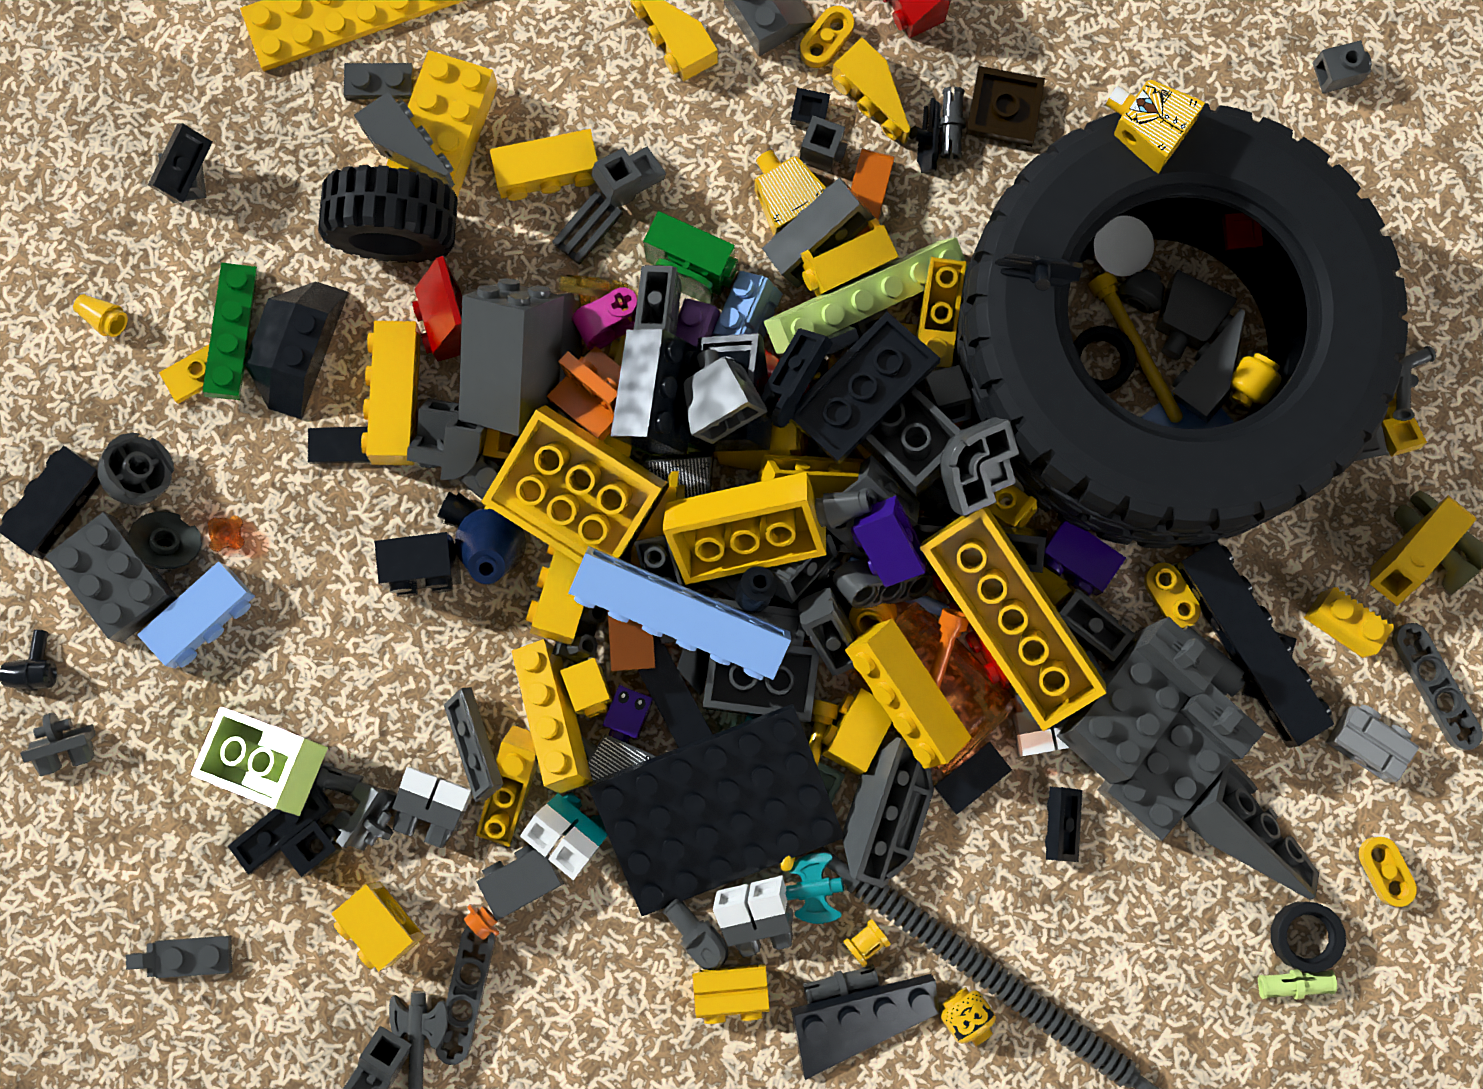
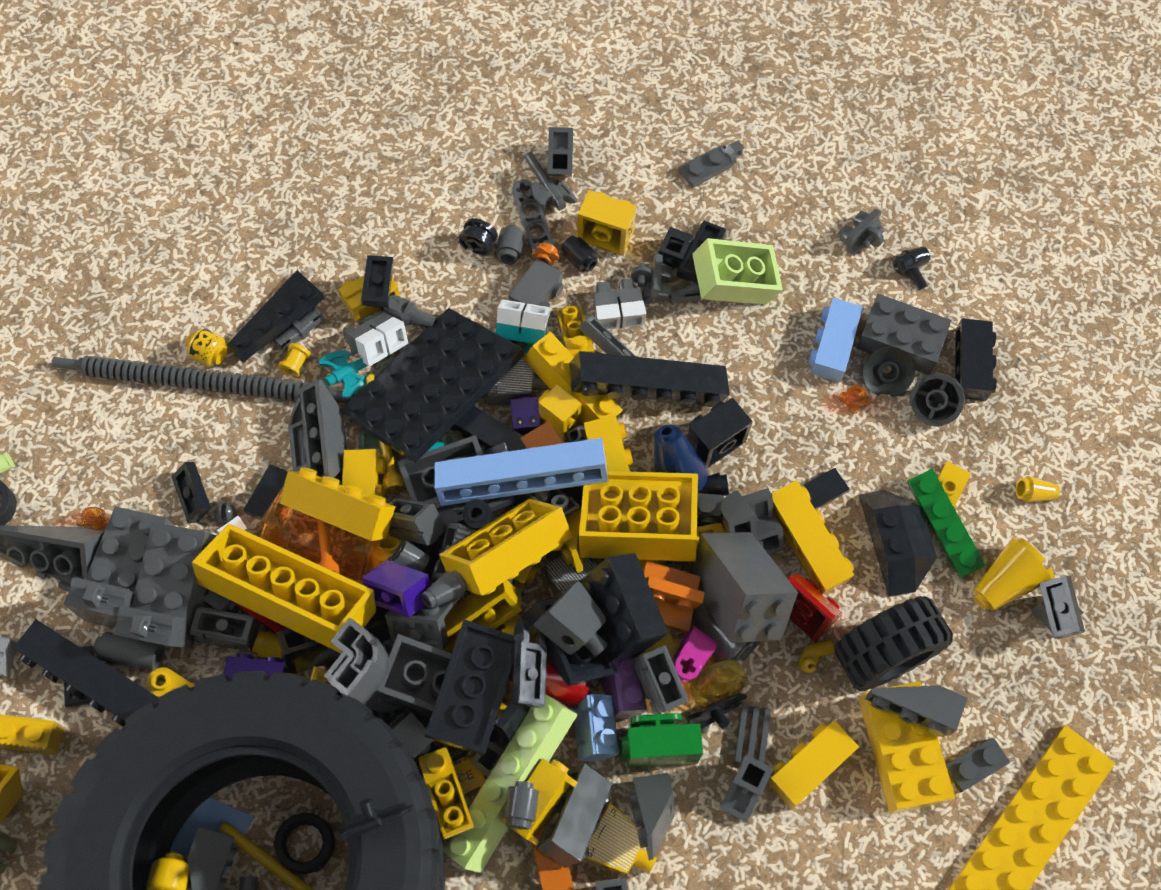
camera: 150 degrees right, 15 degrees down
(204, 233) = (1012, 575): none -> yellow cone
(435, 907) = (579, 253): none -> black brick
(460, 668) = (648, 379): none -> black brick
(475, 273) = (812, 653): none -> yellow arm
(516, 969) = (510, 244): none -> dark grey brick
(554, 994) = (478, 237): none -> black wheel
(611, 268) = (716, 712): none -> black piece
(716, 987) = (377, 281): none -> black plate
(731, 203) = (652, 810): none -> dark grey slope
(873, 250) = (521, 805): none -> dark grey brick
(1027, 776) = (230, 513): none -> dark grey hinge
(1189, 858) = (93, 518): none -> clear orange plate

